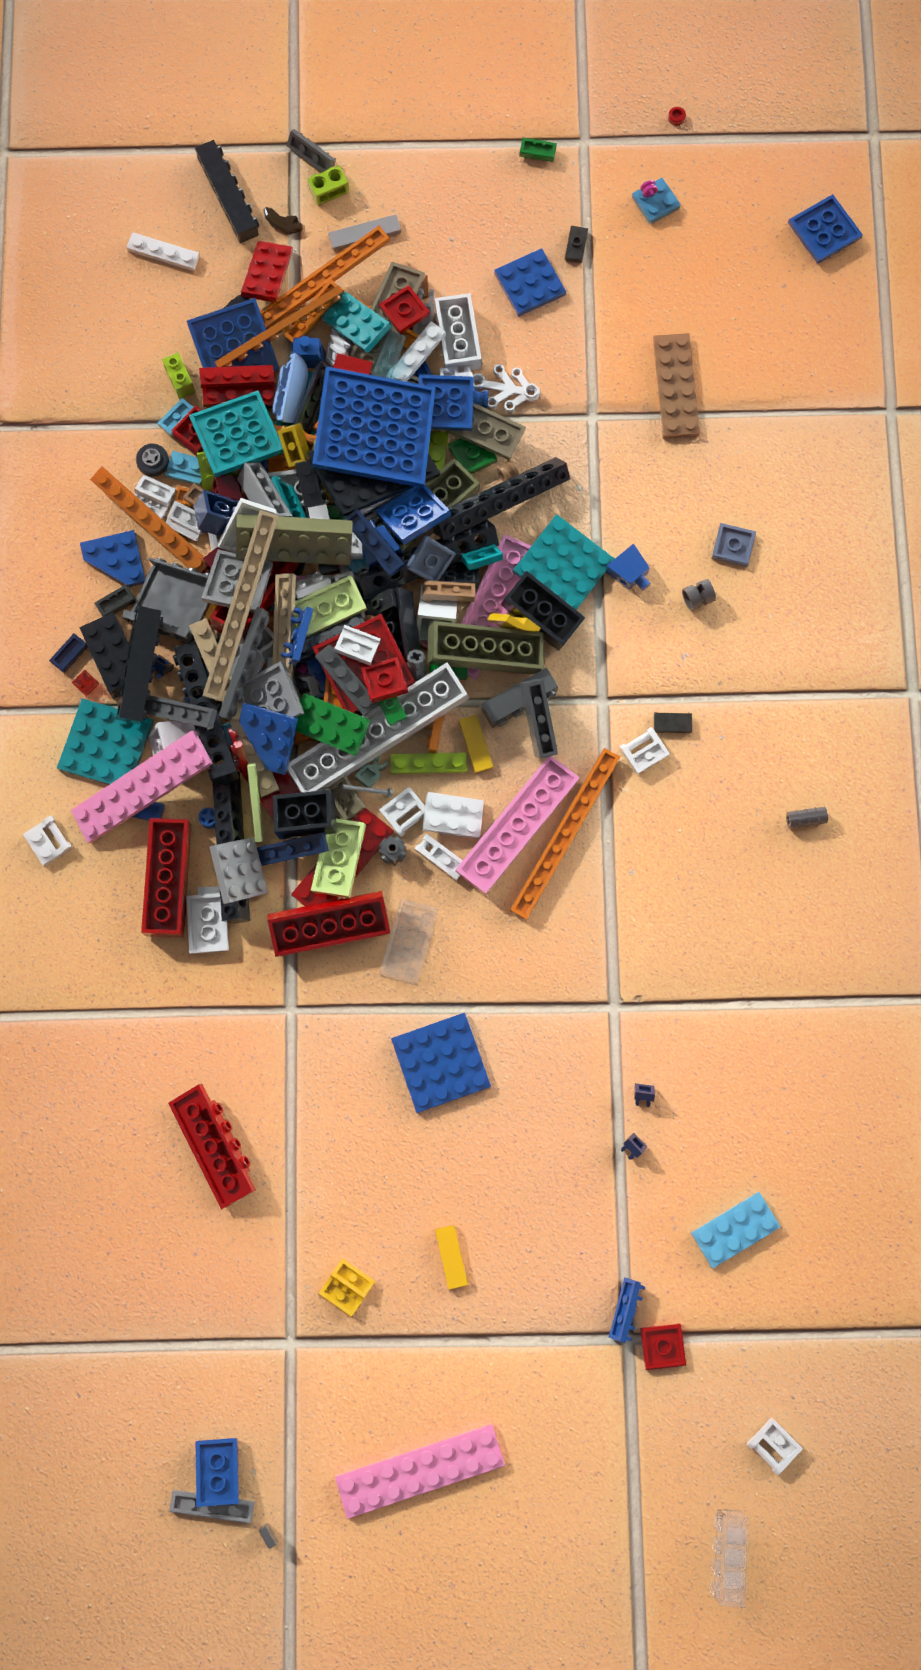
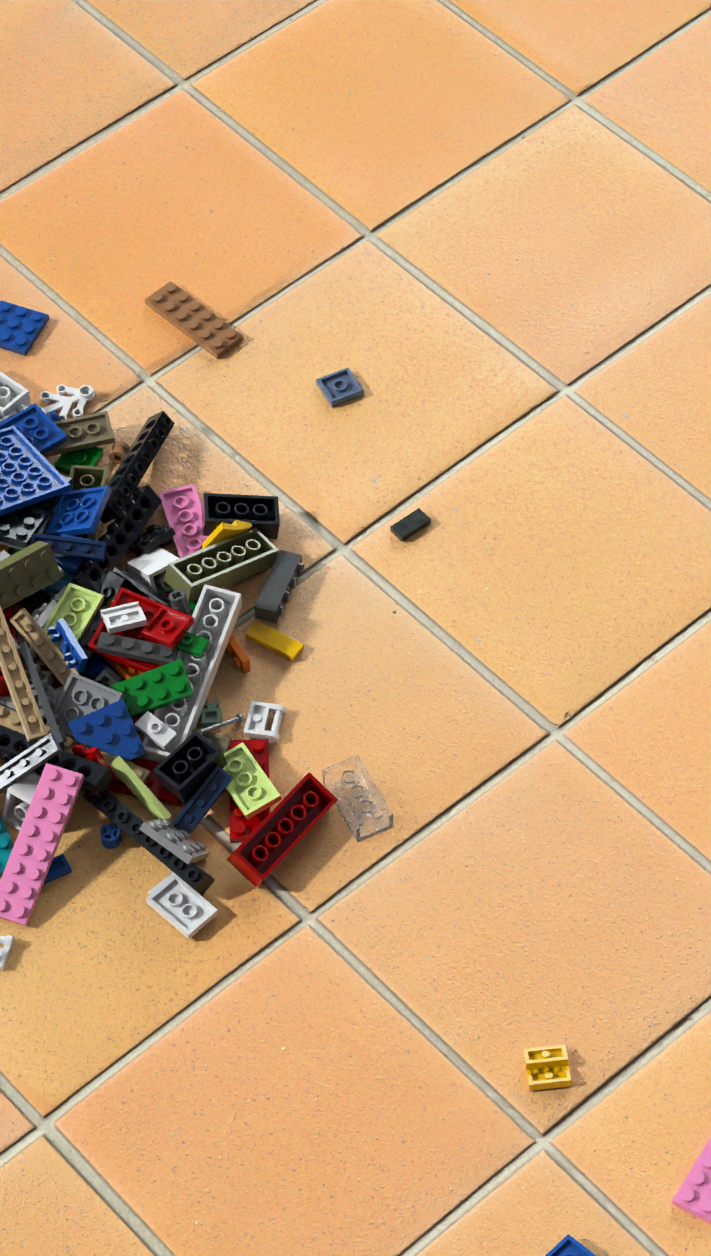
camera: 40 degrees left, 25 degrees down
(166, 878) = (118, 896): red brick -> none
(213, 1145) = (342, 1049): red plate -> none
(306, 761) = (156, 730): none -> white plate
(392, 856) = (282, 750): dark grey brick -> none
(428, 763) = (250, 678): lime plate -> none
(430, 559) = (121, 536): sand blue tile -> none
(439, 856) = (323, 730): white plate -> none
(440, 1062) = (463, 864): blue plate -> none
(448, 591) = (155, 548): medium nougat plate -> none
(451, 1257) = (605, 984): yellow tile -> none
(453, 815) = (305, 695): white plate -> none
(482, 557) = (158, 513): teal plate -> none
(517, 824) = (361, 666): bright pink plate -> none
(539, 718) = (309, 581): dark grey brick -> none
(565, 561) = (222, 474): teal plate -> none
(565, 834) = (404, 649): orange plate -> none
(576, 244) = (25, 282): pearl dark grey plate -> none
(629, 569) = (278, 450): blue torso -> none
(634, 1145) = (665, 805): dark blue tile -> none
(644, 1092) = (637, 766): dark blue tile -> none
(648, 755) = (413, 557): white plate -> none
(649, 188) = (49, 210): dark pink bush -> none
(658, 205) = (60, 219): dark azure plate -> none
(676, 116) = (22, 159): red tile -> none
(699, 594) = (347, 431): dark grey wheel -> none
(807, 817) = (570, 512): dark grey axle -> none
(825, 228) = (206, 157): blue plate -> none

